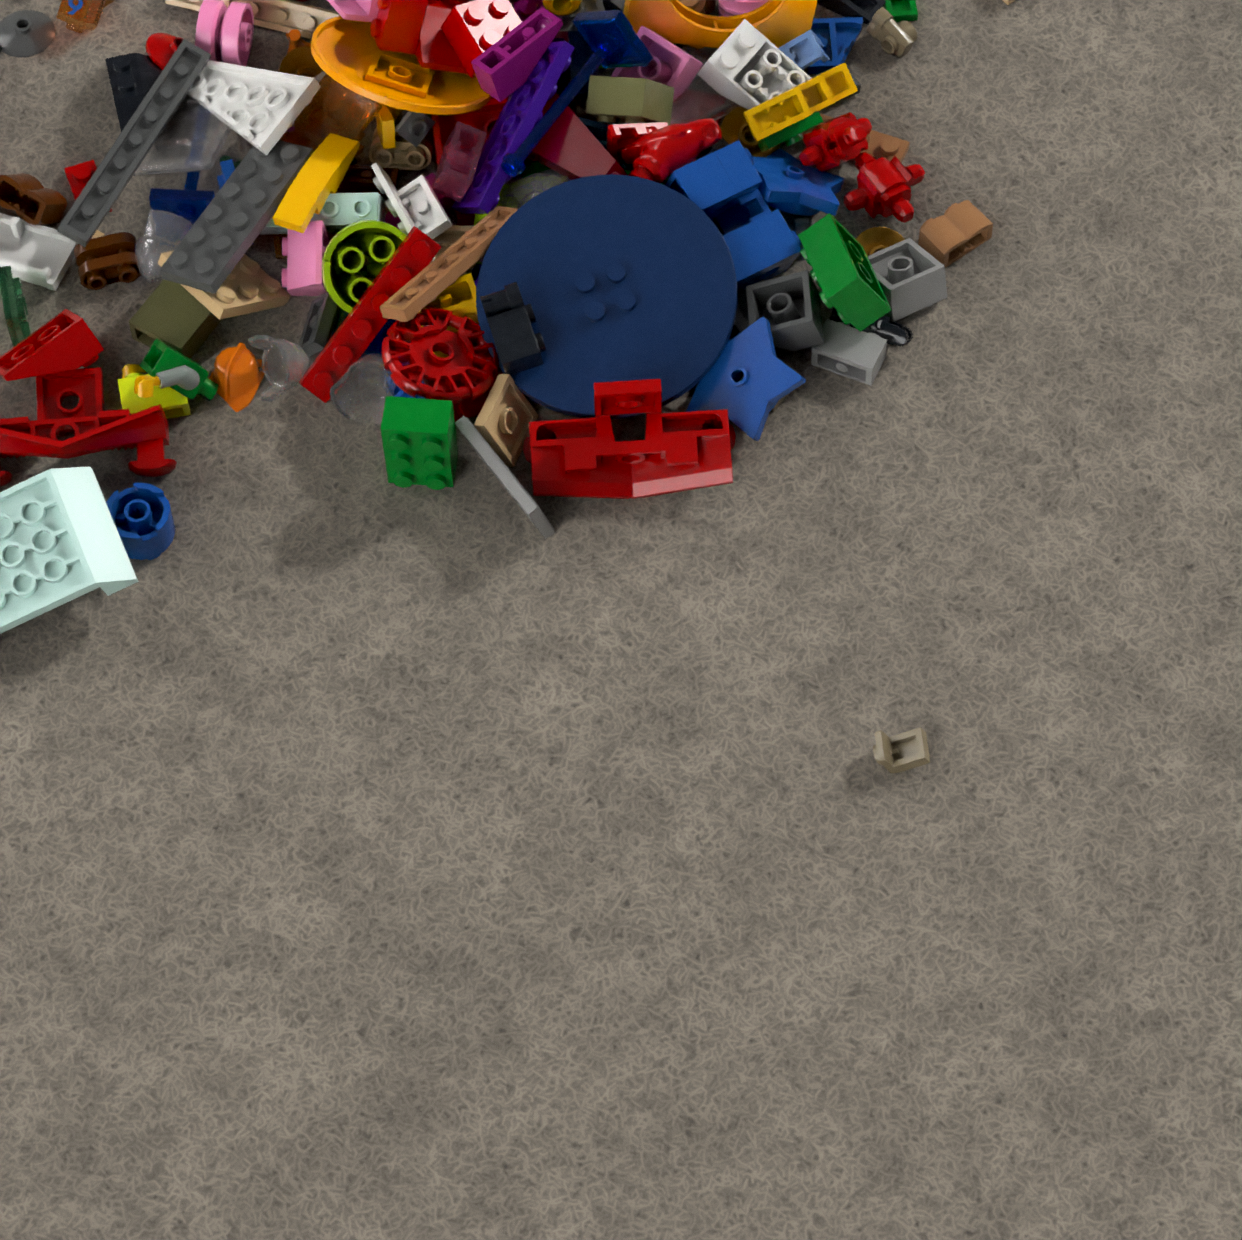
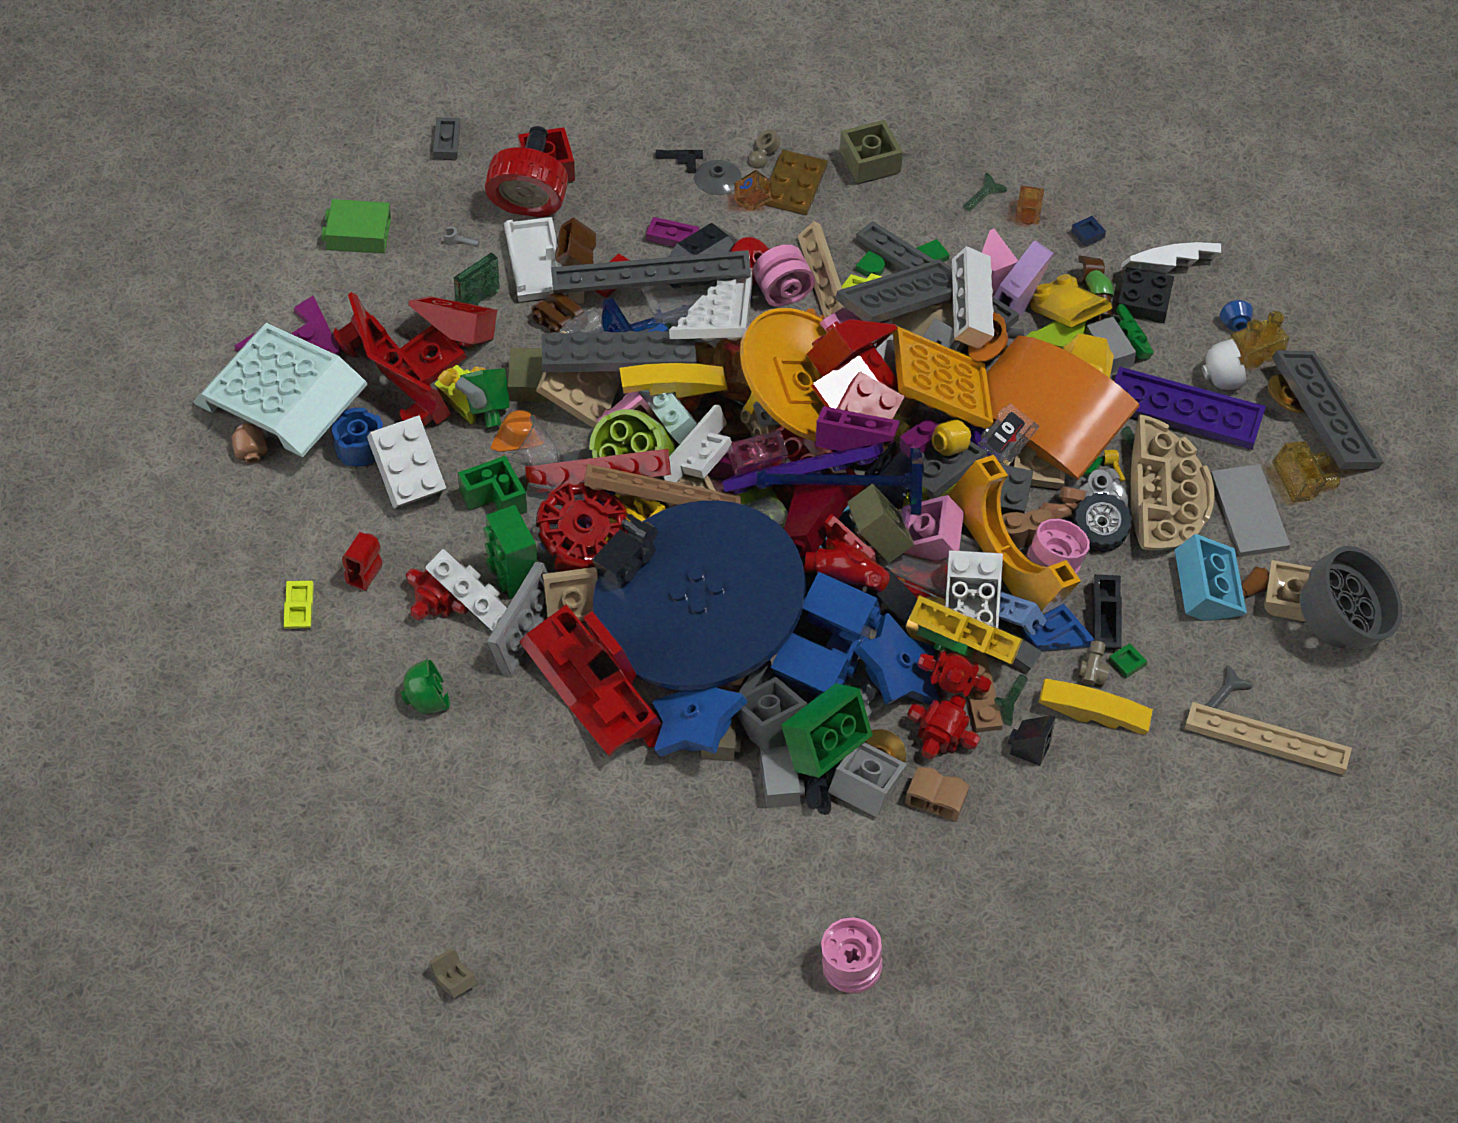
camera: 55 degrees right, 5 degrees down
(62, 633) = (249, 443): none -> nougat head
(75, 108) = (668, 231): none -> magenta plate
(219, 486) = (406, 462): none -> white brick
(305, 419) = (494, 483): none -> green brick
(319, 590) = (362, 561): none -> red brick
(322, 687) = (298, 604): none -> neon yellow slope
(405, 541) = (431, 596): none -> red piece
(443, 505) = (467, 588): none -> white bracket
(527, 611) = (423, 687): none -> green cylinder
(887, 123) = (1007, 704): none -> clear green piece
(940, 55) = (1096, 705): none -> yellow slope
(950, 120) = (1032, 739): none -> black slope
(1104, 390) = (851, 941): none -> bright pink wheel

